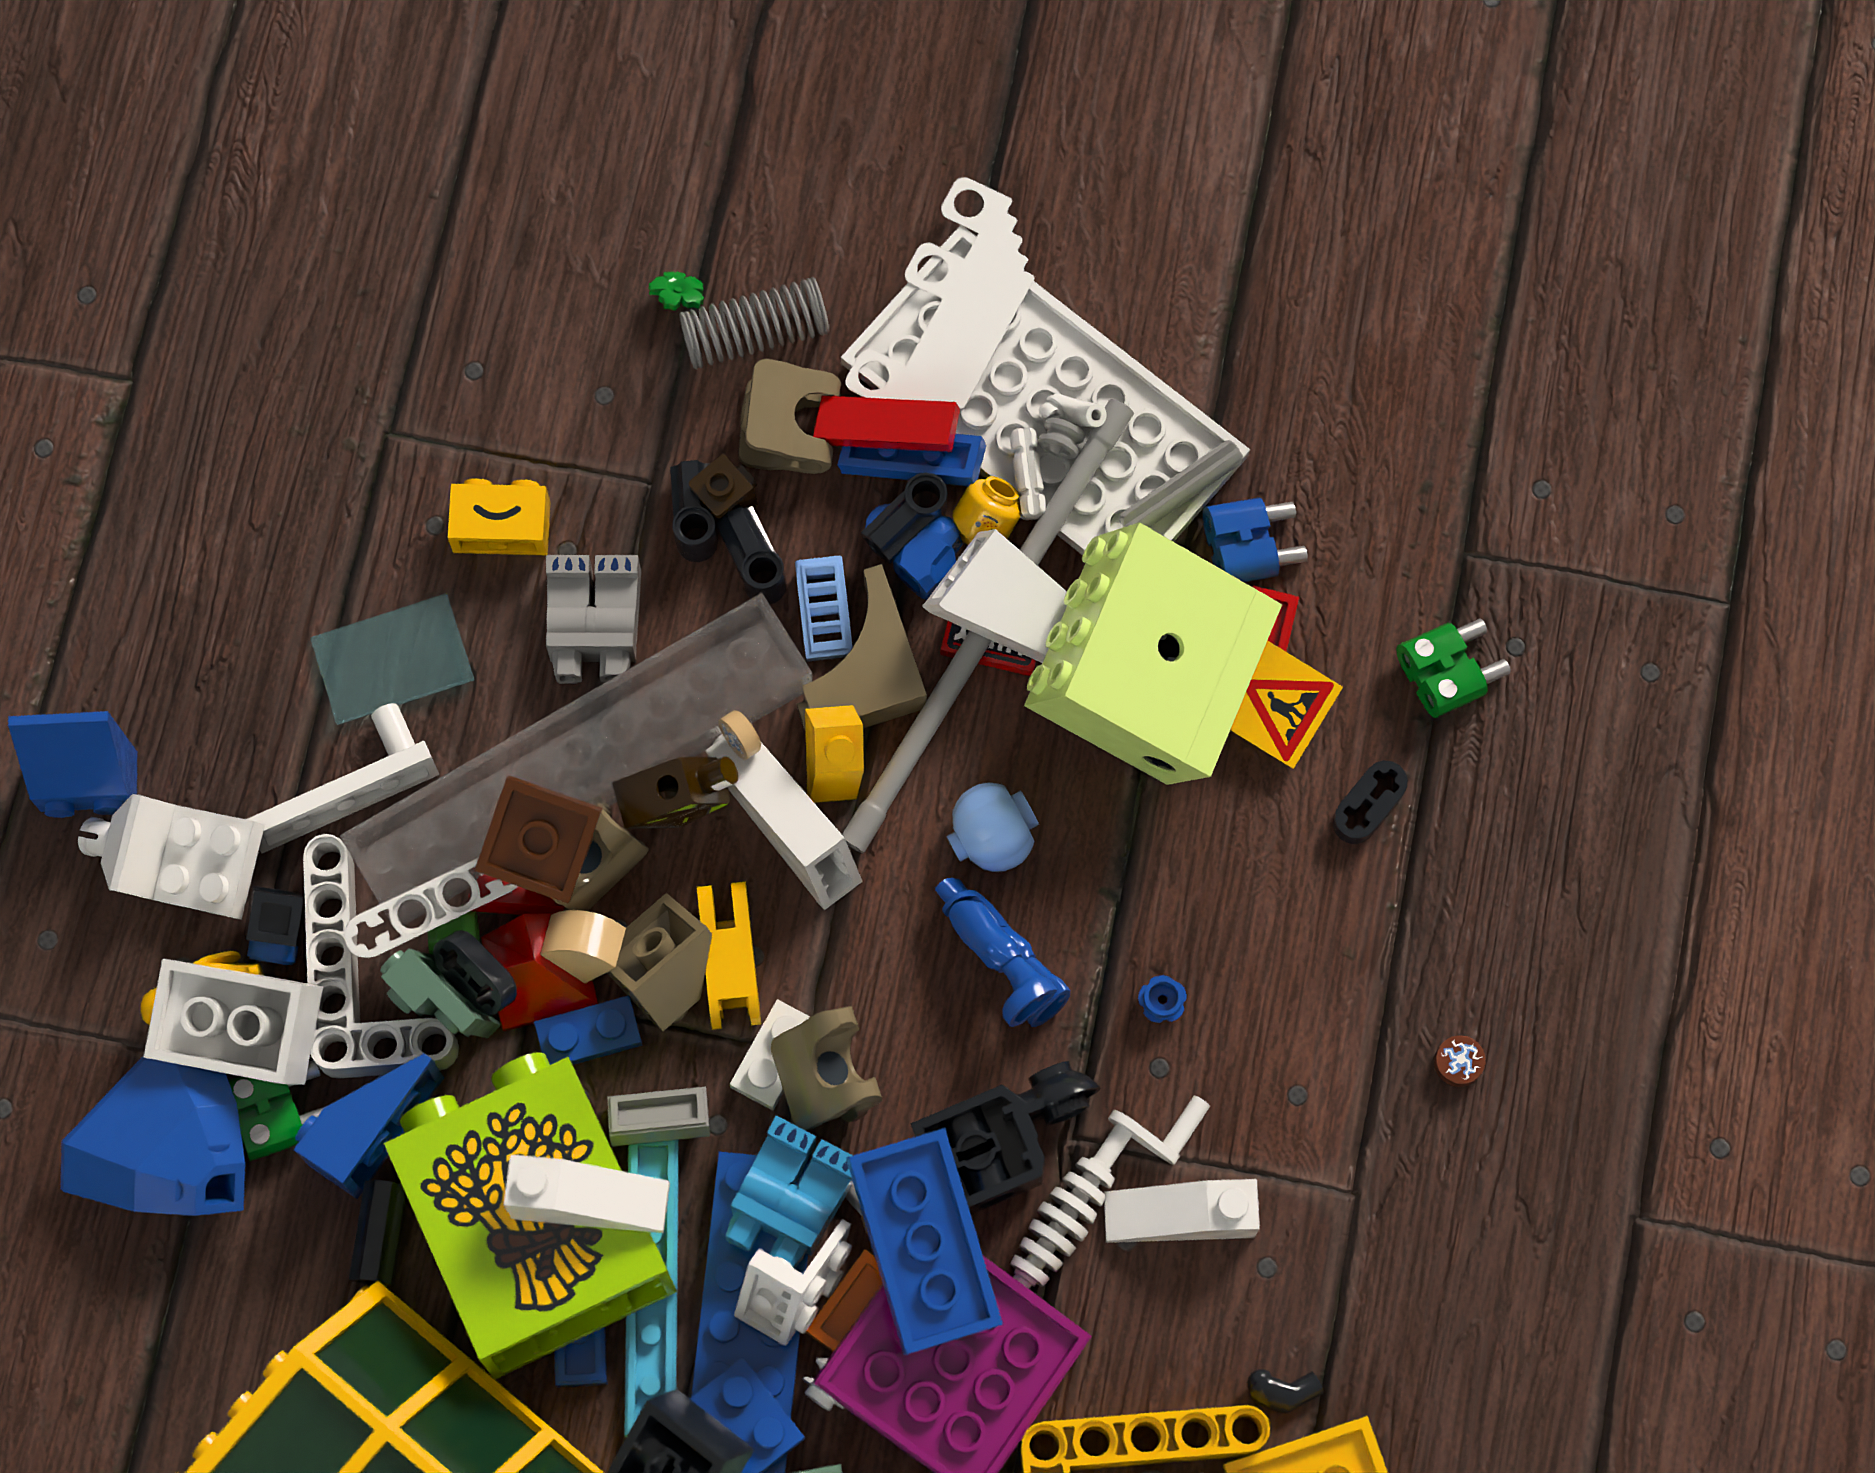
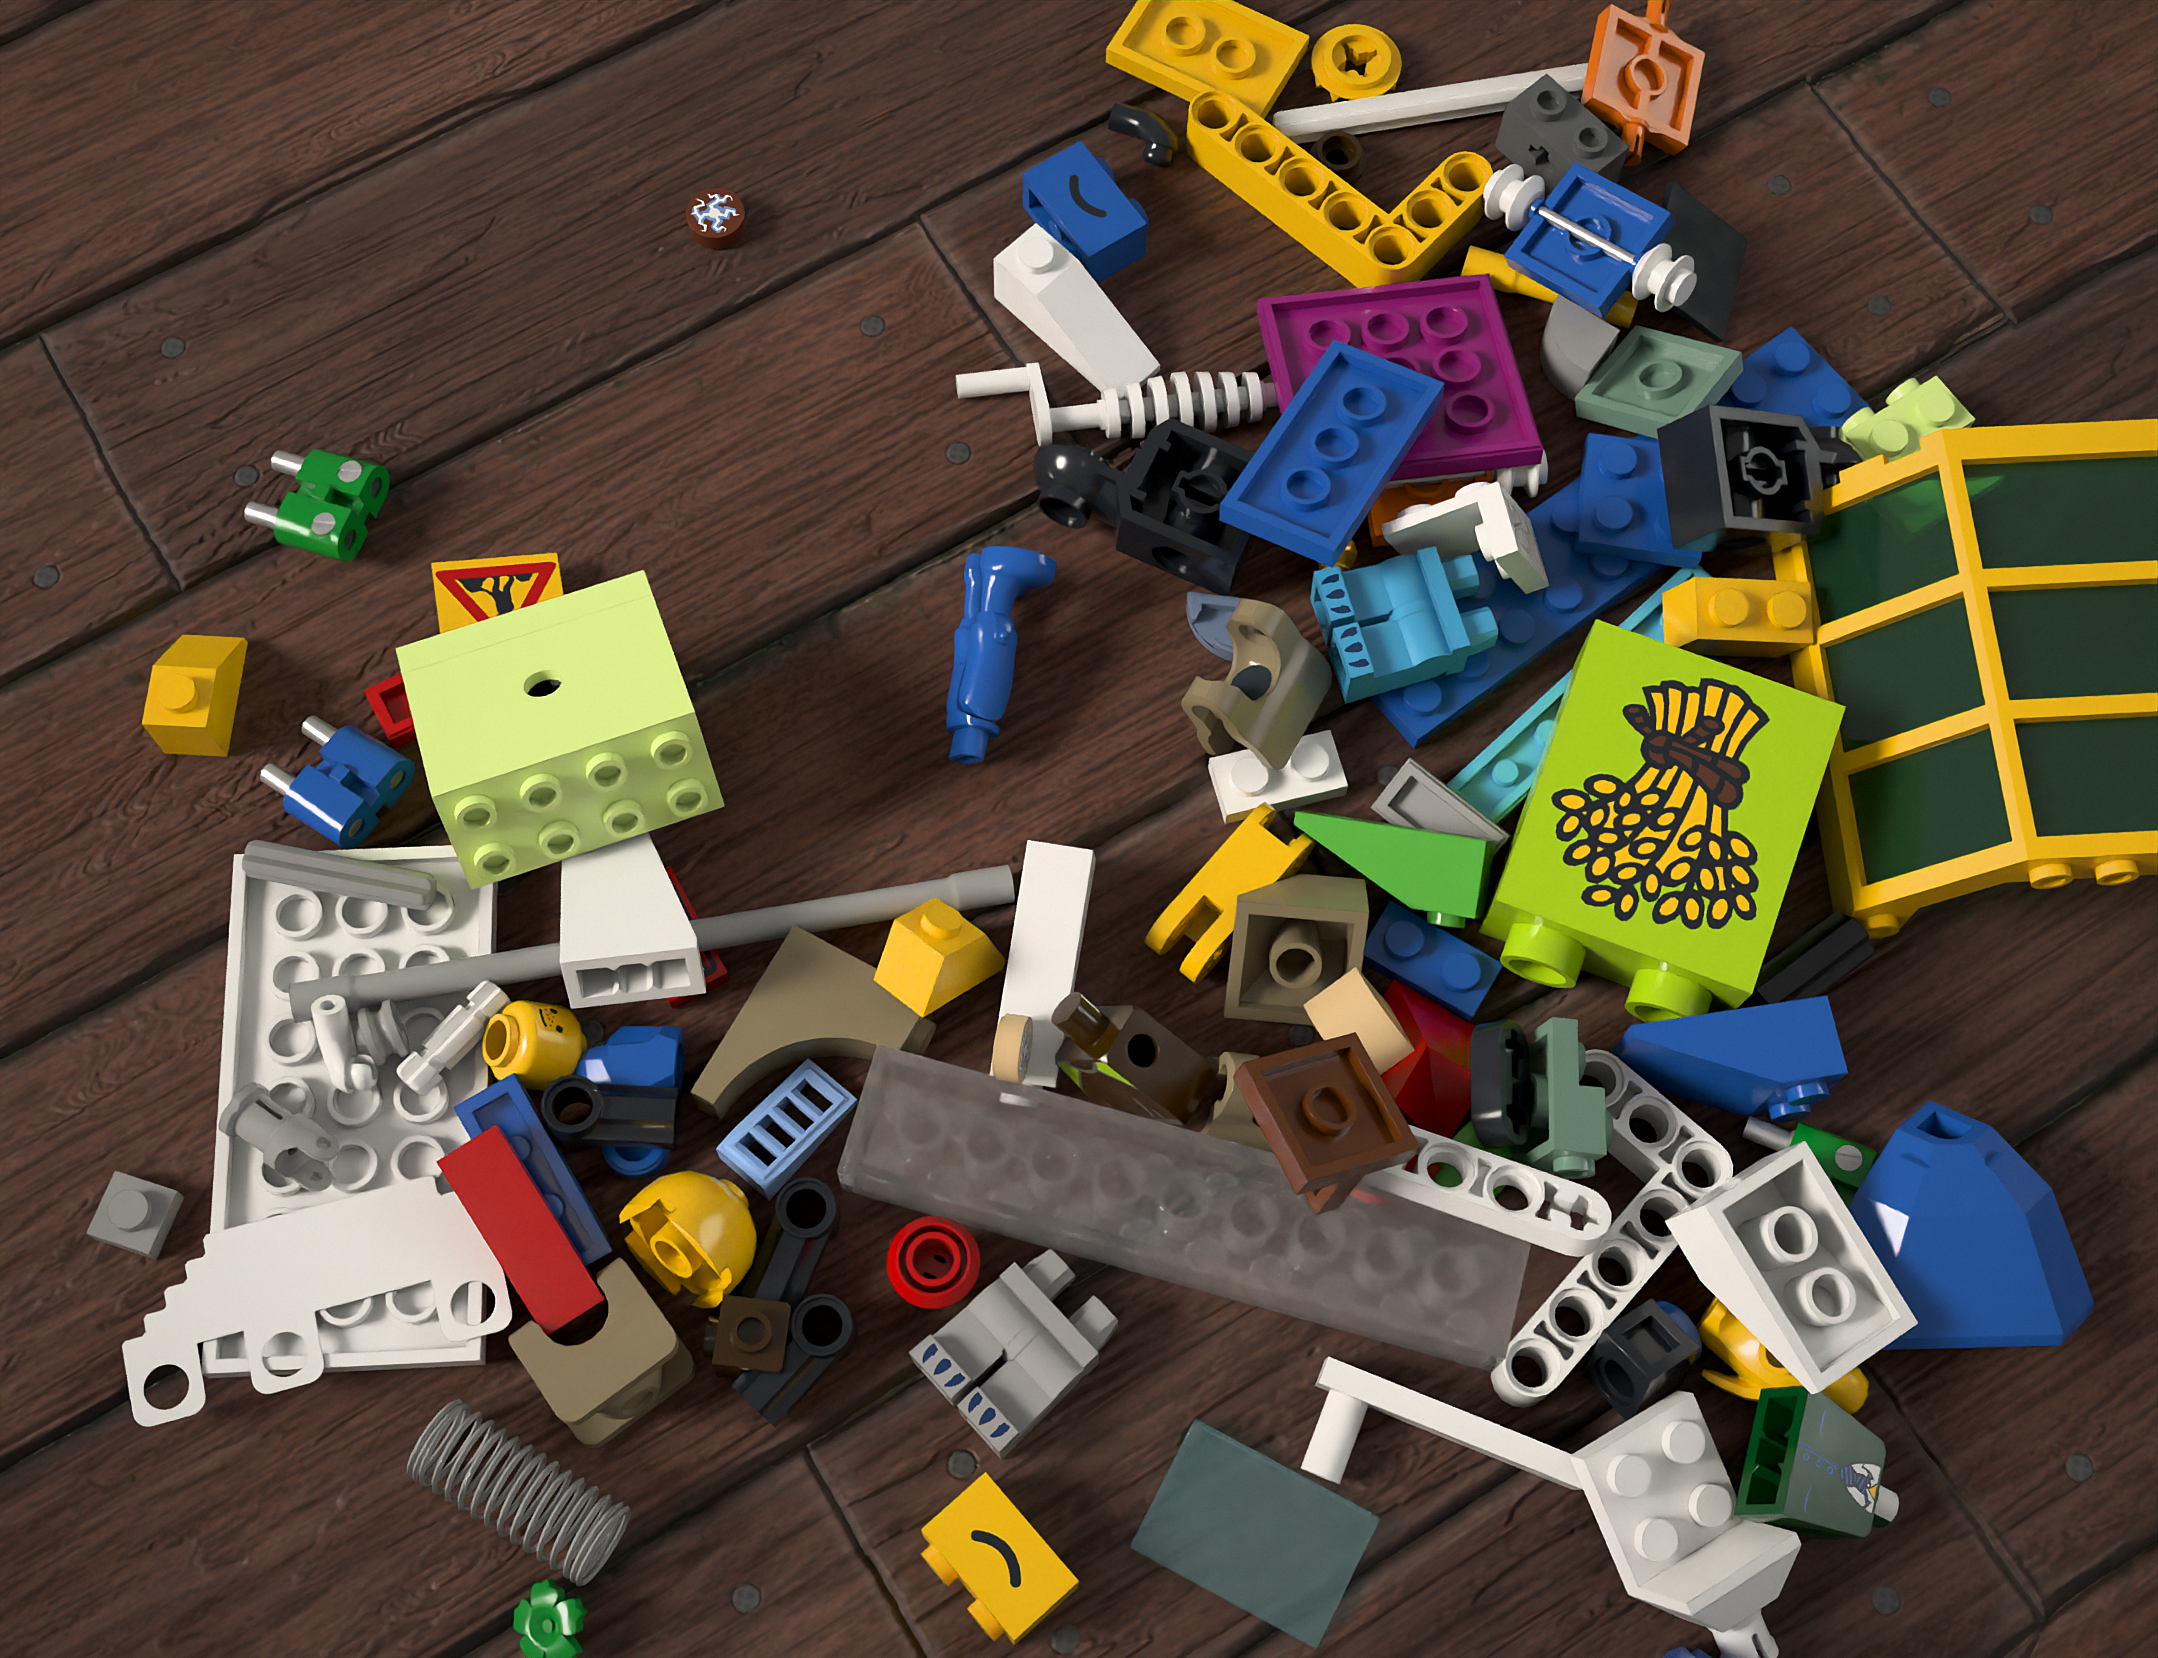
camera: 135 degrees left, 5 degrees down
(131, 941) = (1813, 1469): none -> dark green torso
(584, 1195) = (1617, 742): white slope -> none
(605, 1404) = (1738, 616): none -> yellow brick
(653, 1064) = (1415, 865): none -> bright green slope
(674, 610) = (914, 1255): none -> red cone
(805, 511) = (692, 1234): none -> yellow cylinder
(899, 1110) = (1208, 621): none -> sand blue tile
(992, 827) = (869, 765): light blue plant -> none
(1044, 347) = (284, 1138): none -> light grey piece
(1085, 259) = (135, 1215): none -> light grey plate
(1167, 987) = (893, 476): blue plate -> none
(1252, 1288) = (1086, 211): none -> blue brick
(1378, 809) = (528, 470): black beam -> none
(1379, 507) = (195, 695): none -> yellow slope

